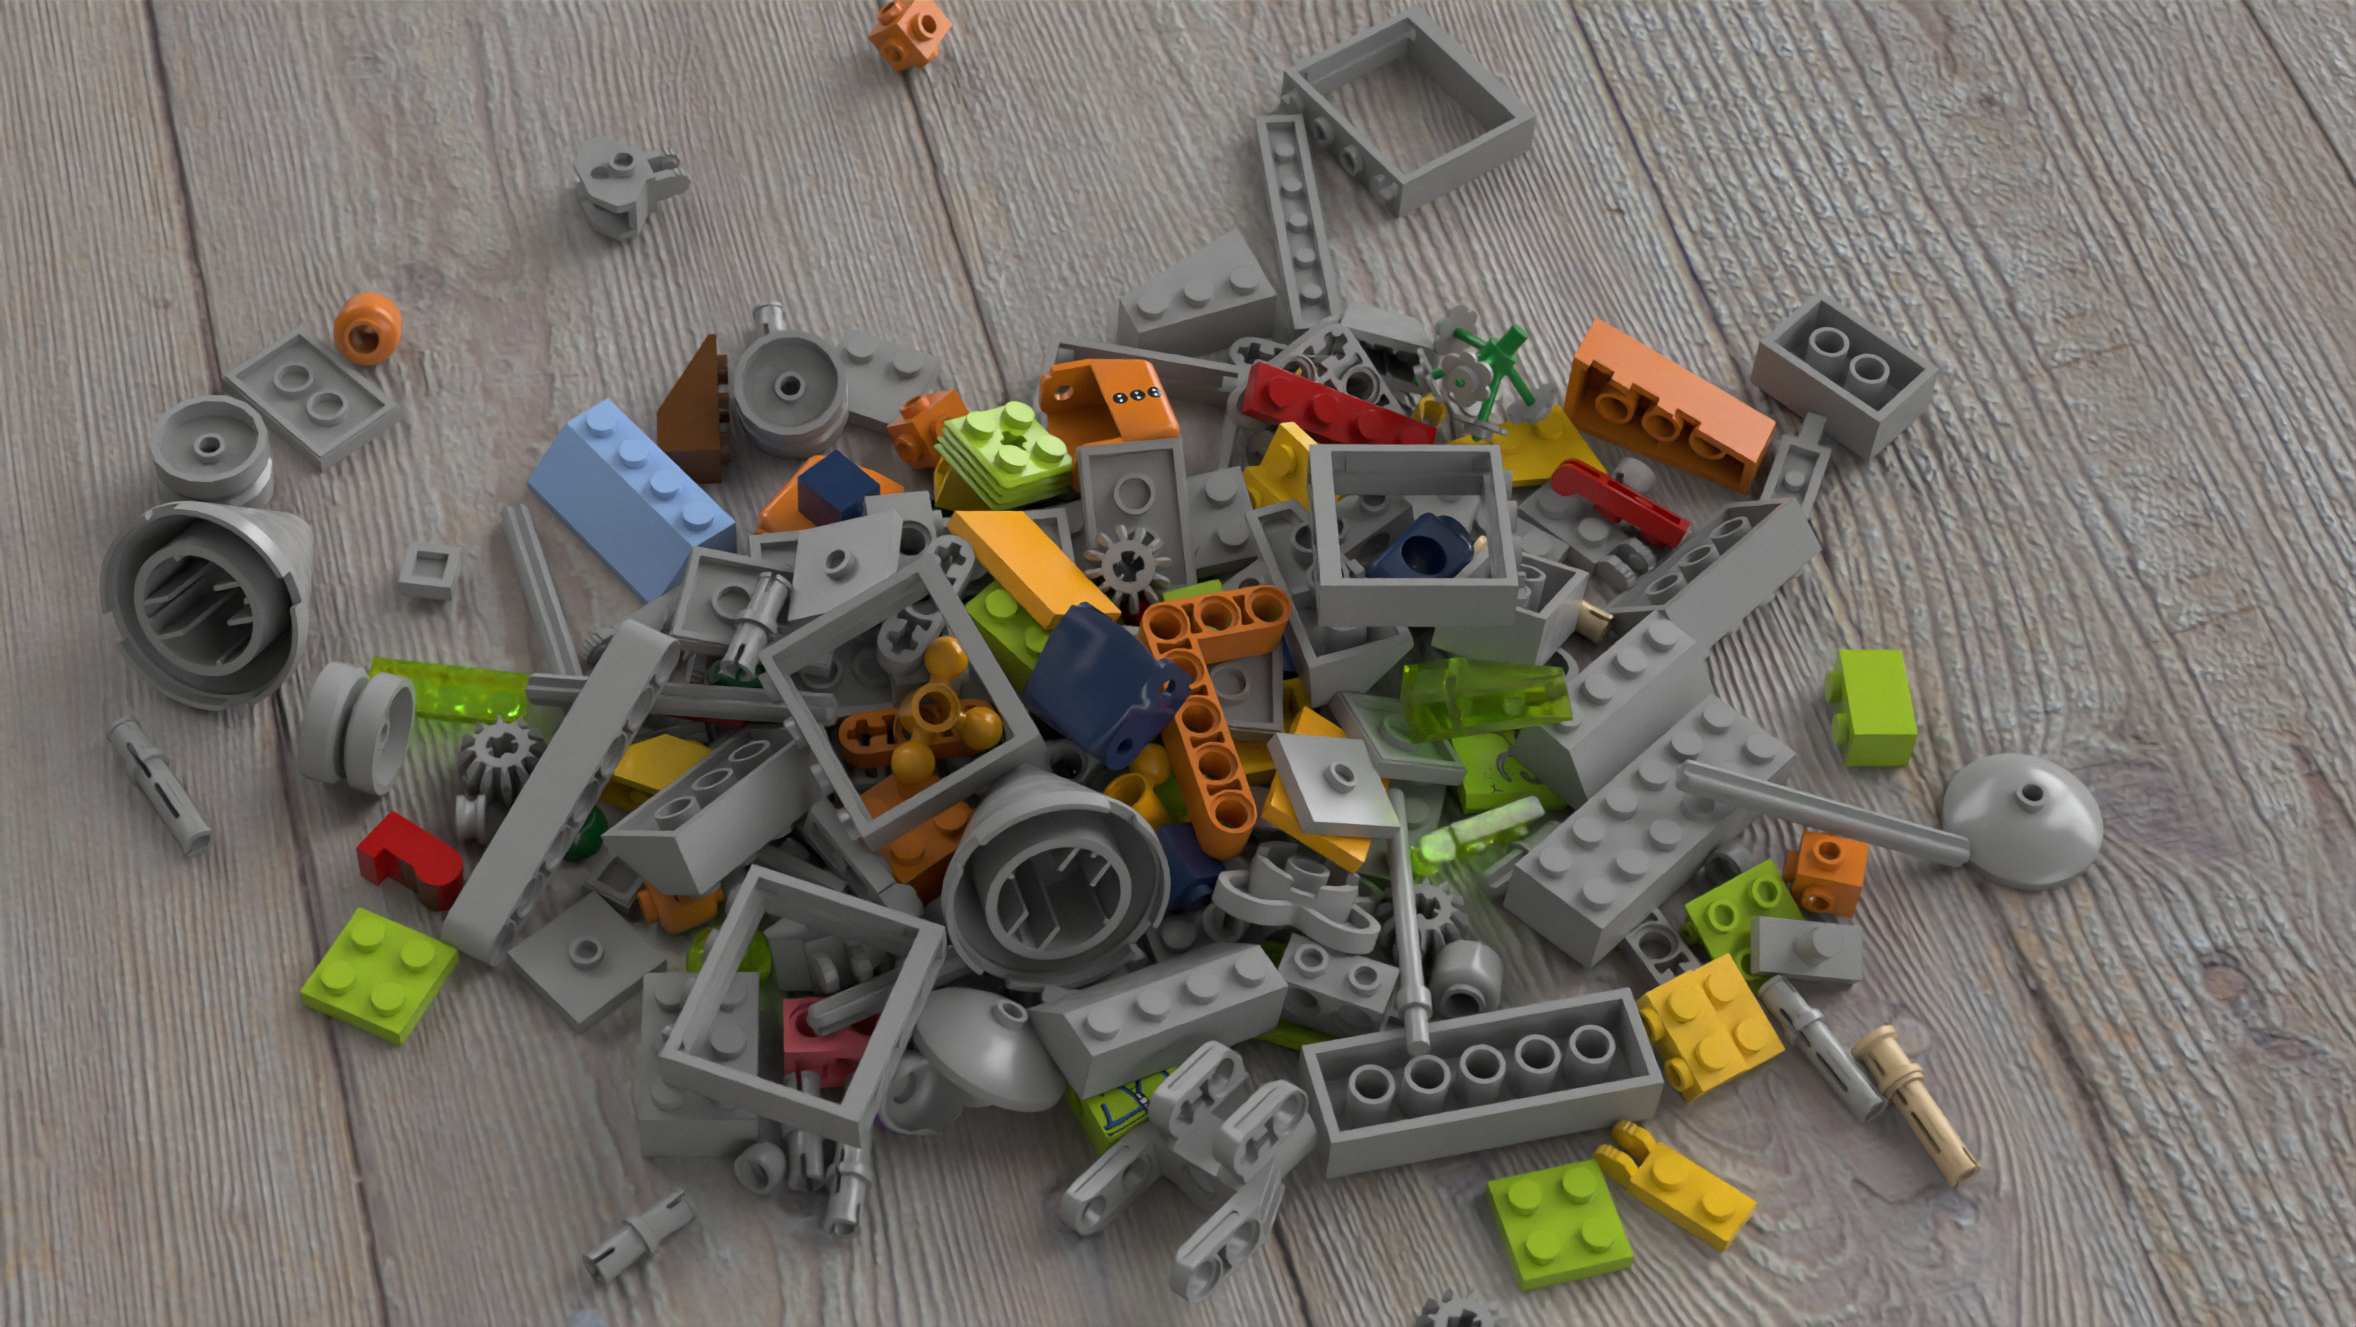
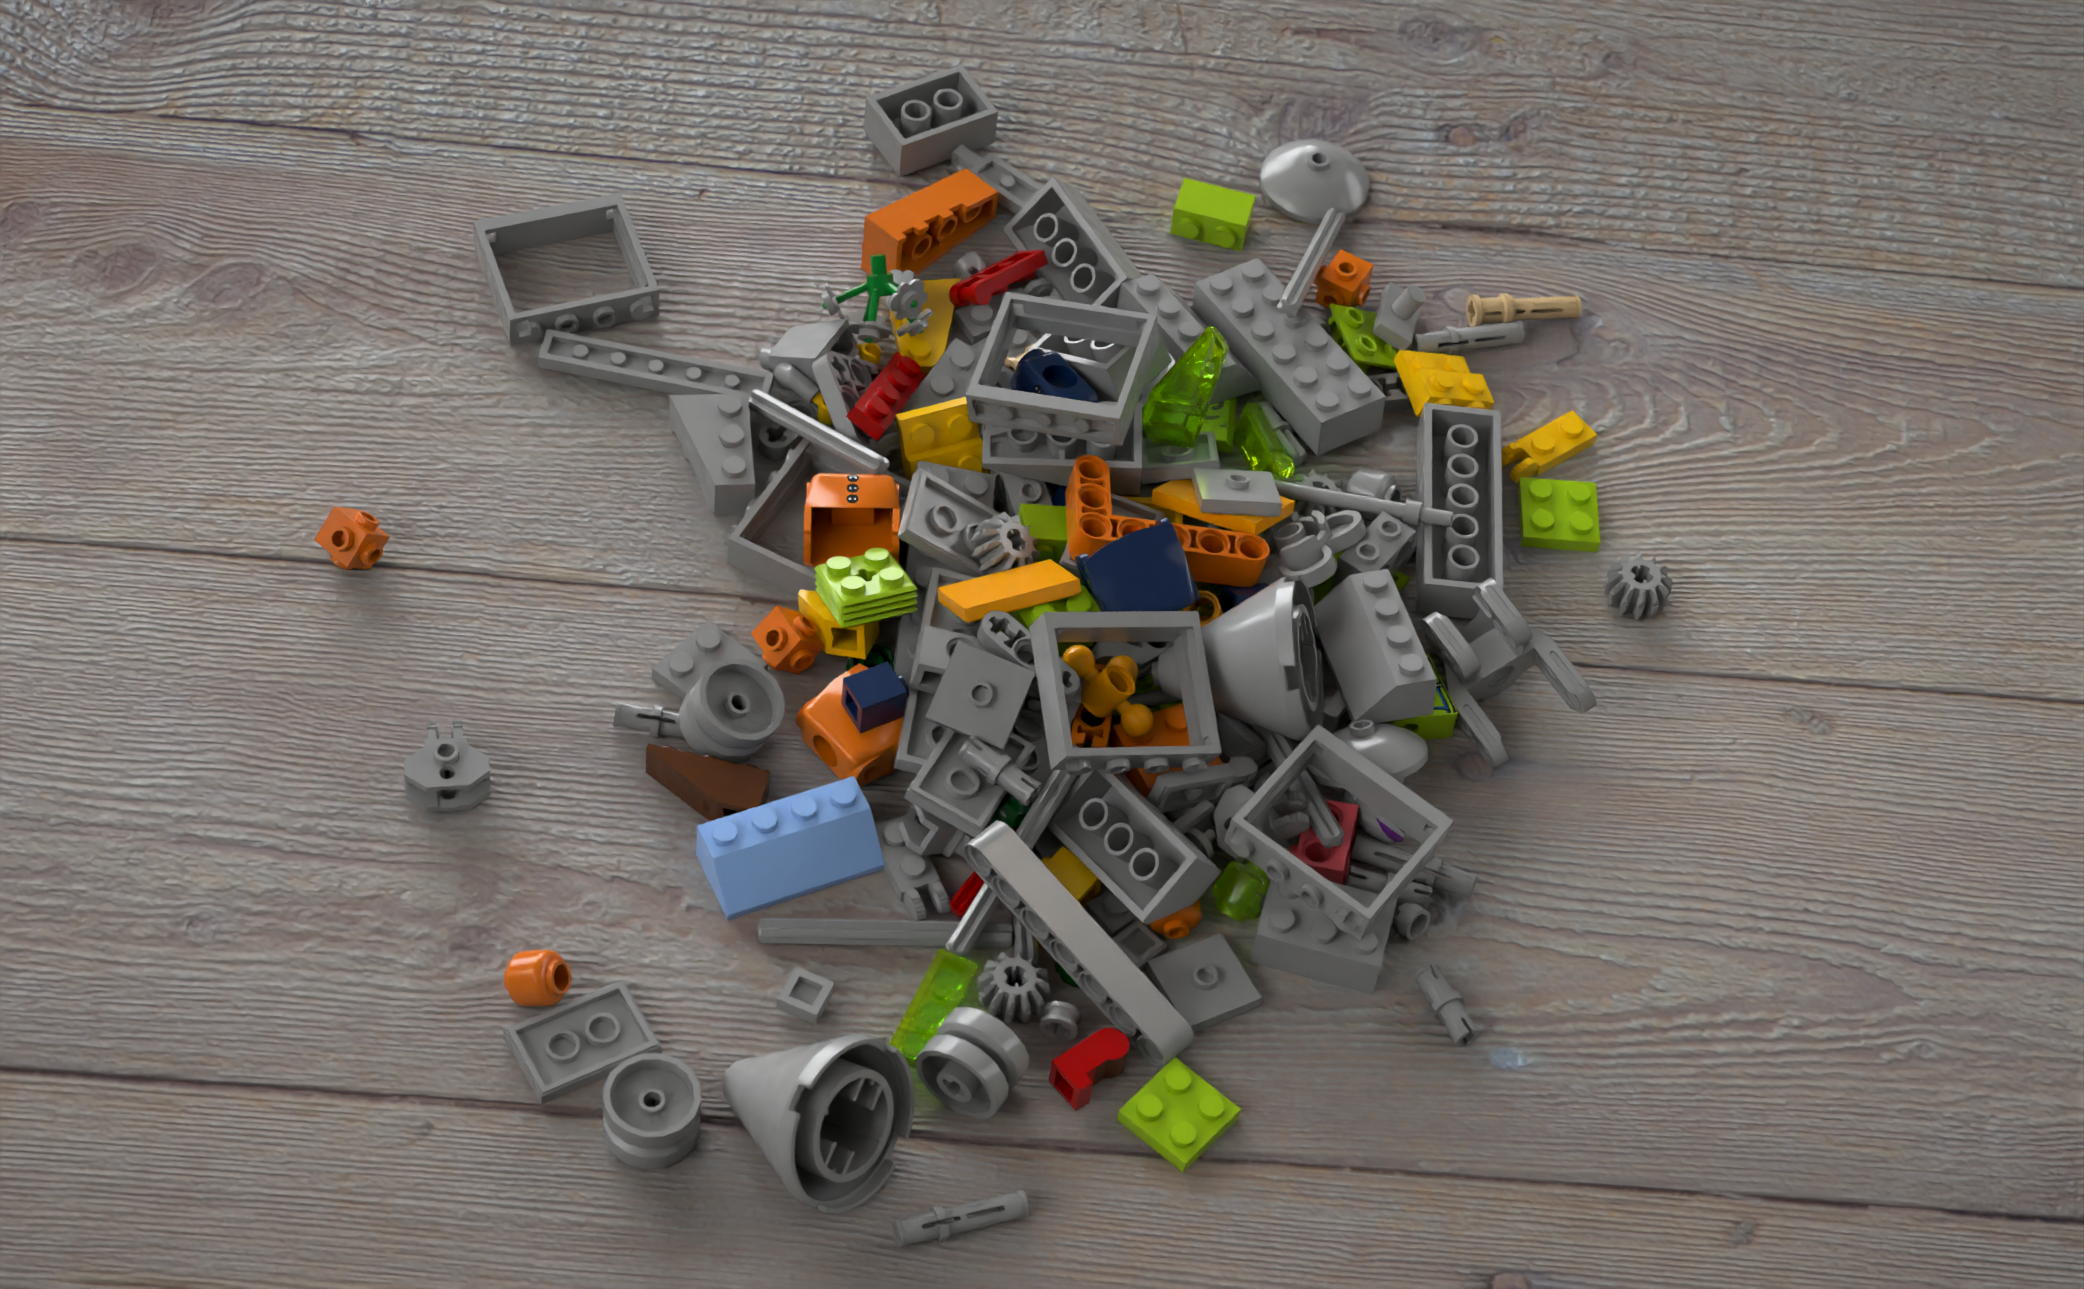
camera: 75 degrees left, 0 degrees up
(1236, 365) = (818, 433): none -> light grey axle

